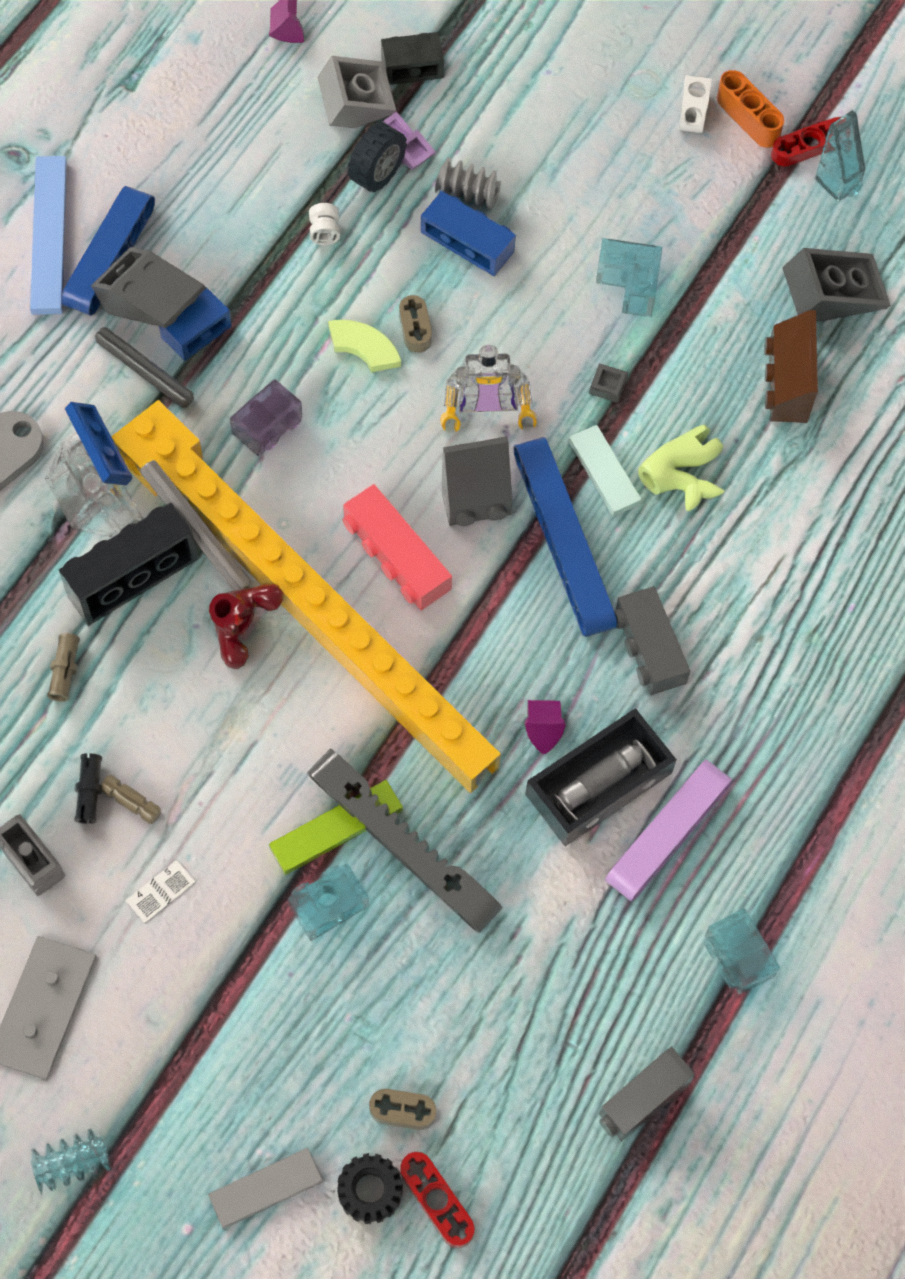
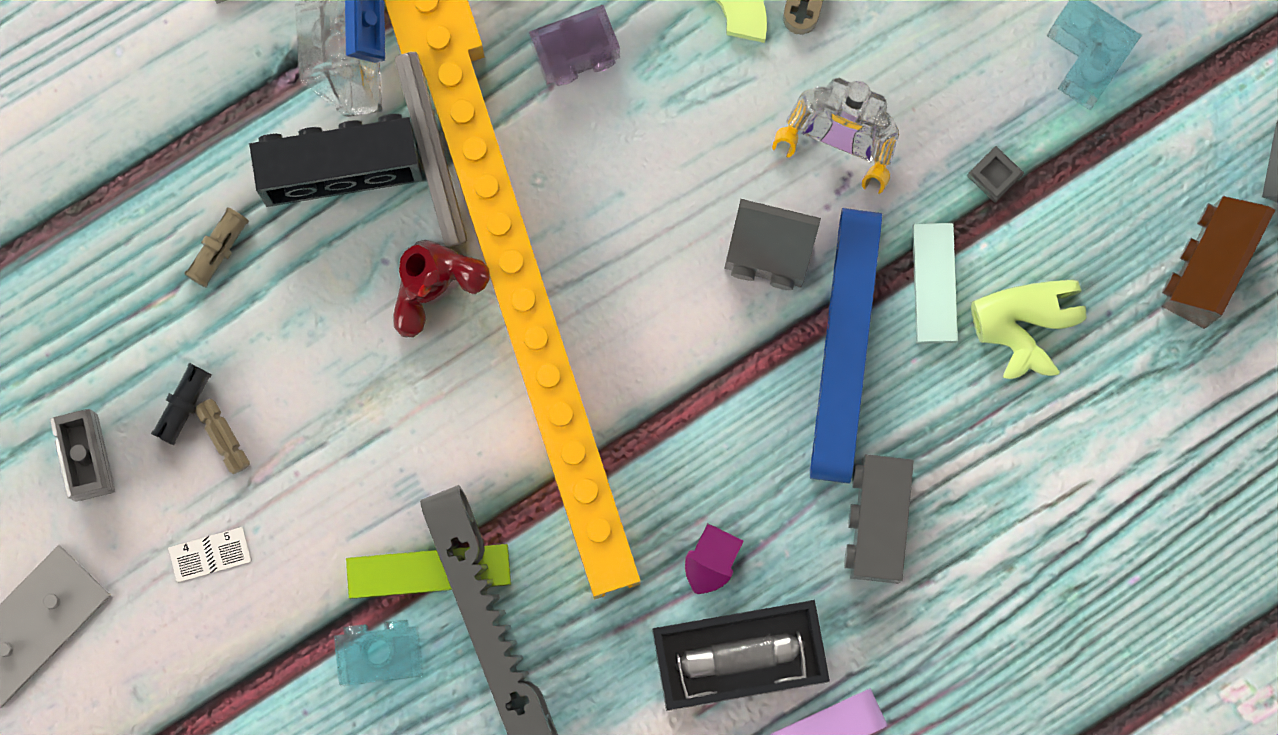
camera: 25 degrees right, 15 degrees up
(397, 547) = (649, 273): coral brick -> none

